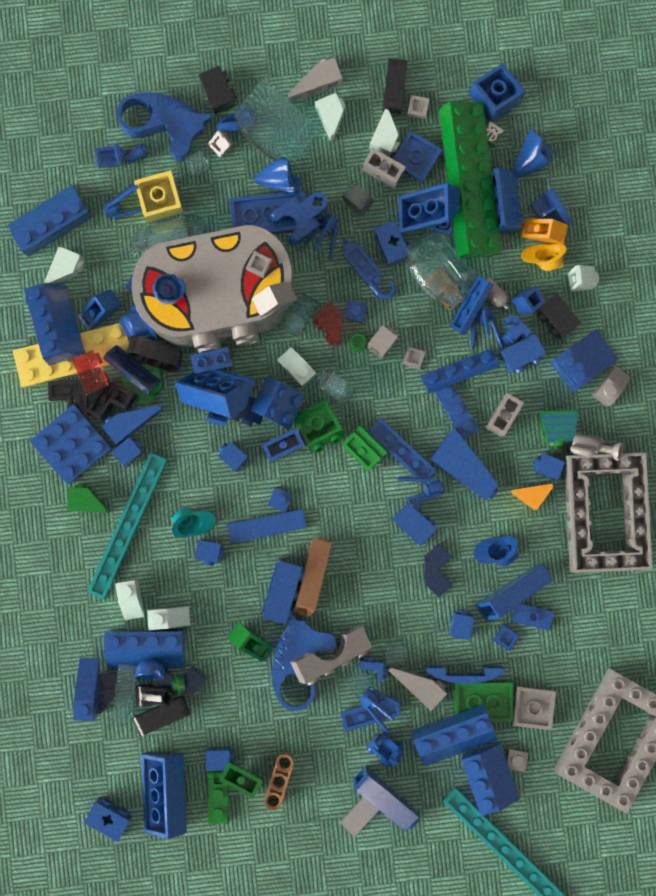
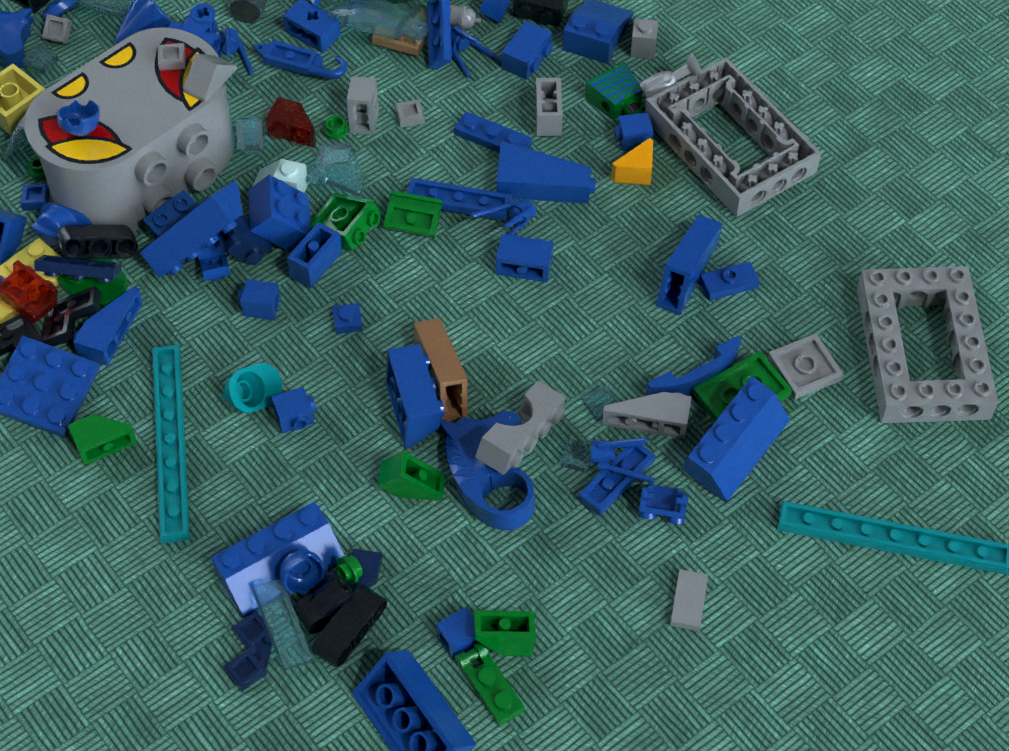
camera: 30 degrees left, 30 degrees down
(87, 690) = (230, 645): blue slope -> none
(128, 451) = (123, 359): blue brick -> none
(130, 599) = (222, 512): light aqua slope -> none
(168, 617) = (282, 503): light aqua slope -> none
(266, 526) = (348, 352): blue tile -> none
(279, 789) = (556, 626): medium nougat beam -> none
(355, 311) = (314, 103): blue plate -> none
(371, 663) = (582, 422): blue bracket -> none
(385, 799) = (704, 552): slope -> none
(433, 563) = (587, 302): dark blue tile -> none
(460, 371) = (469, 97): blue plate -> none
(461, 625) = (655, 327): blue brick -> none
(490, 778) = (812, 464): blue slope -> none
(497, 550) = (643, 234): blue piece -> none
(506, 637) = (717, 317): blue tile -> none
(516, 330) = (502, 28): blue piece -> none
(517, 759) = (830, 434): light grey plate -> none

